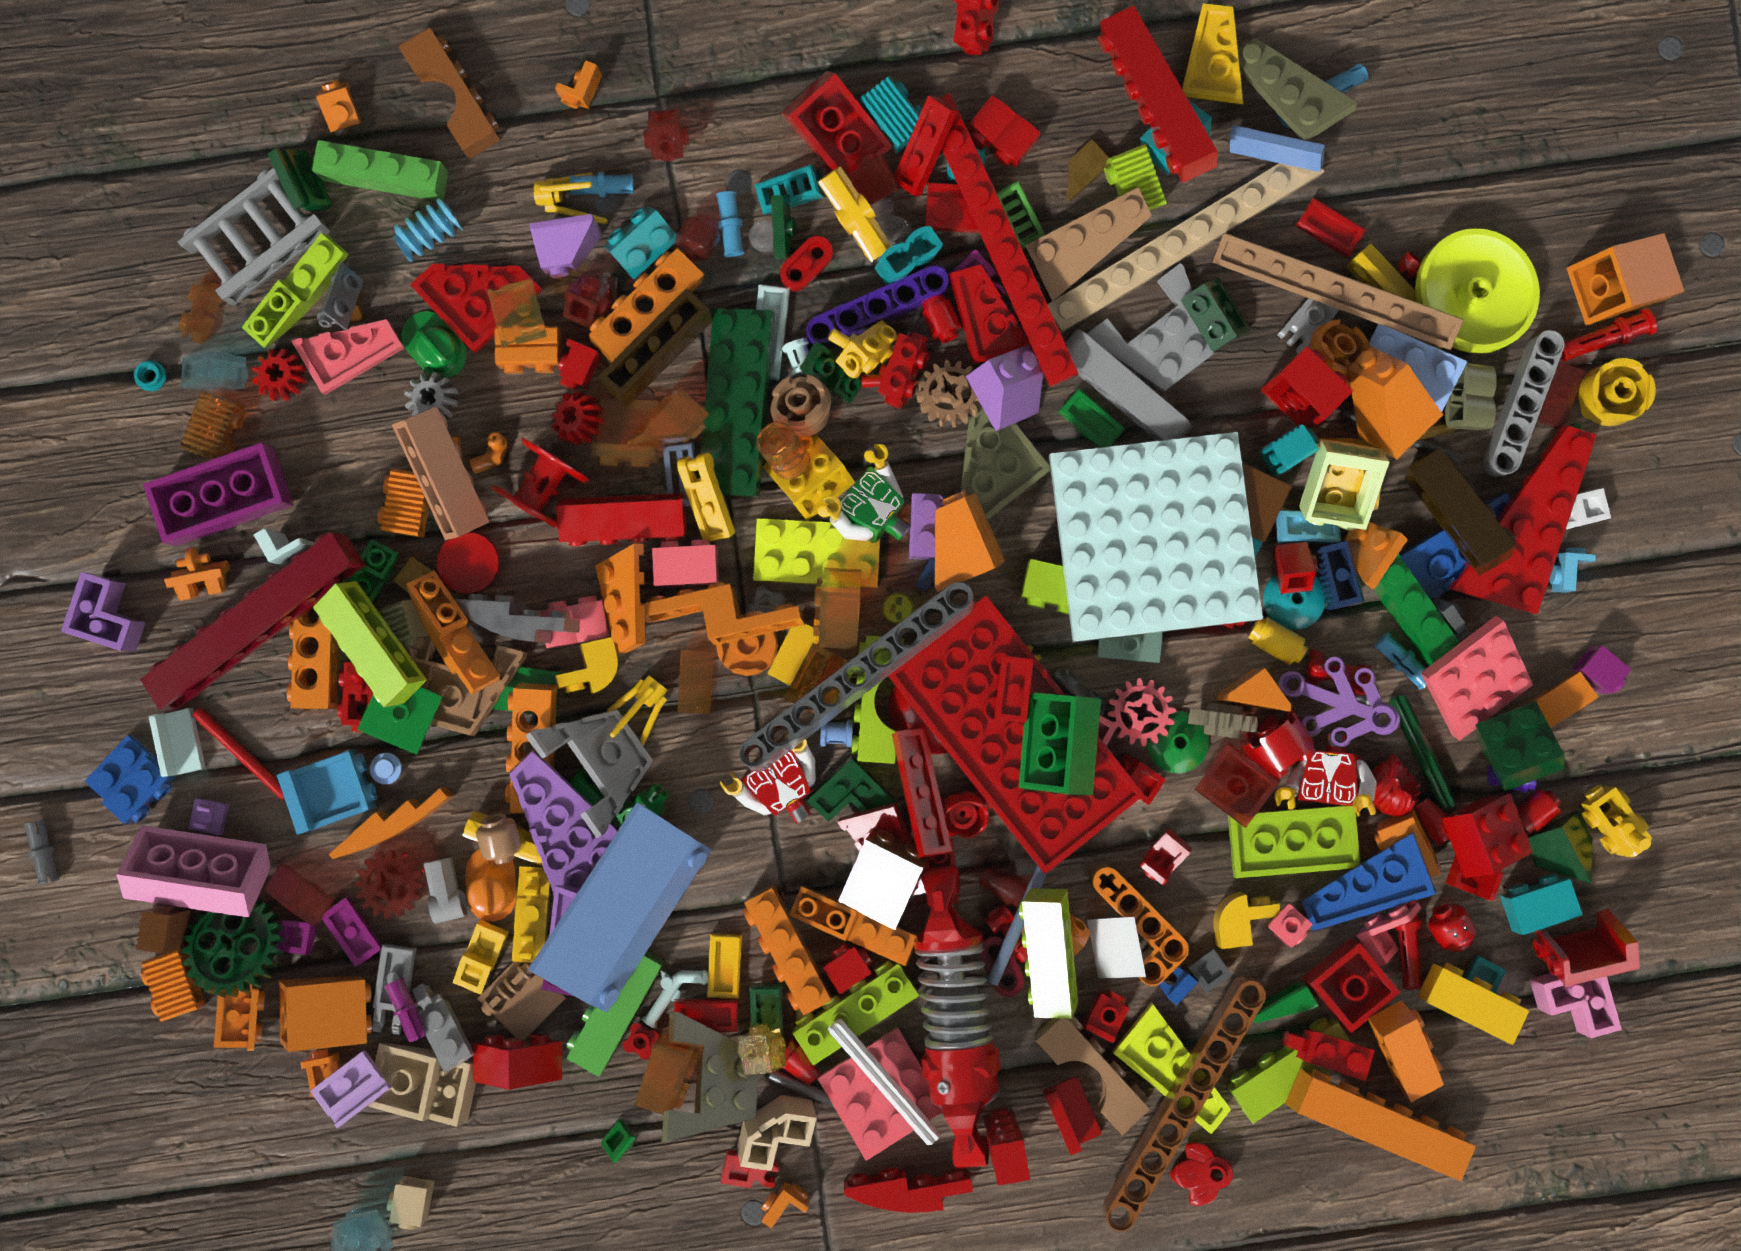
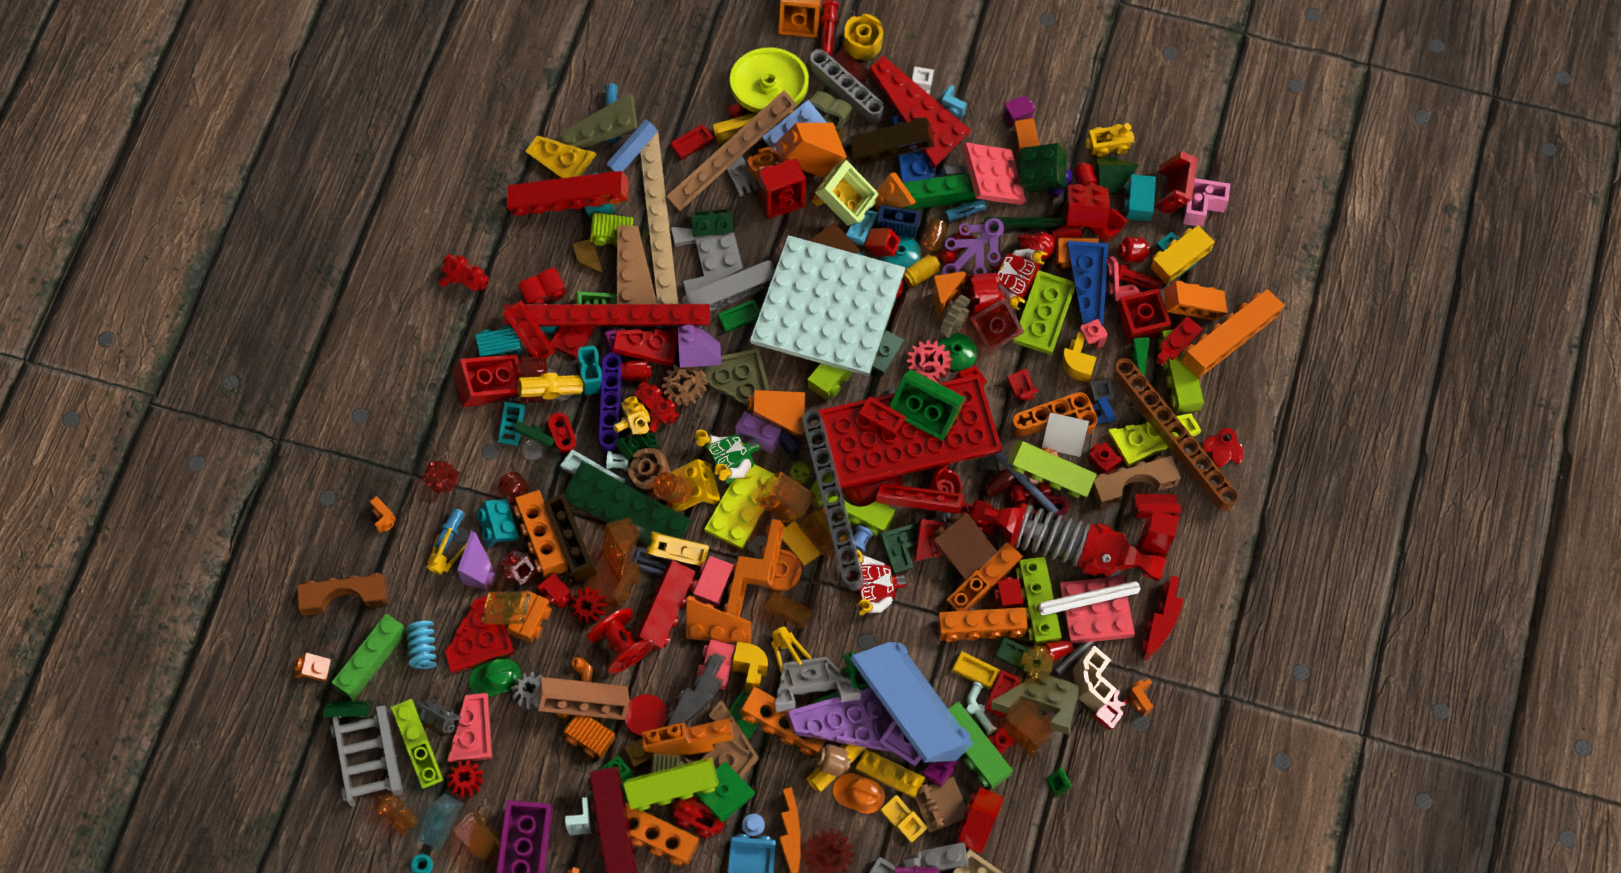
camera: 70 degrees left, 20 degrees down
(445, 898) = (856, 822): light grey piece -> none
(730, 223) = (514, 465): dark azure pin -> none
(1289, 449) = (812, 214): teal brick -> none
(1342, 635) = (935, 235): none -> clear orange brick

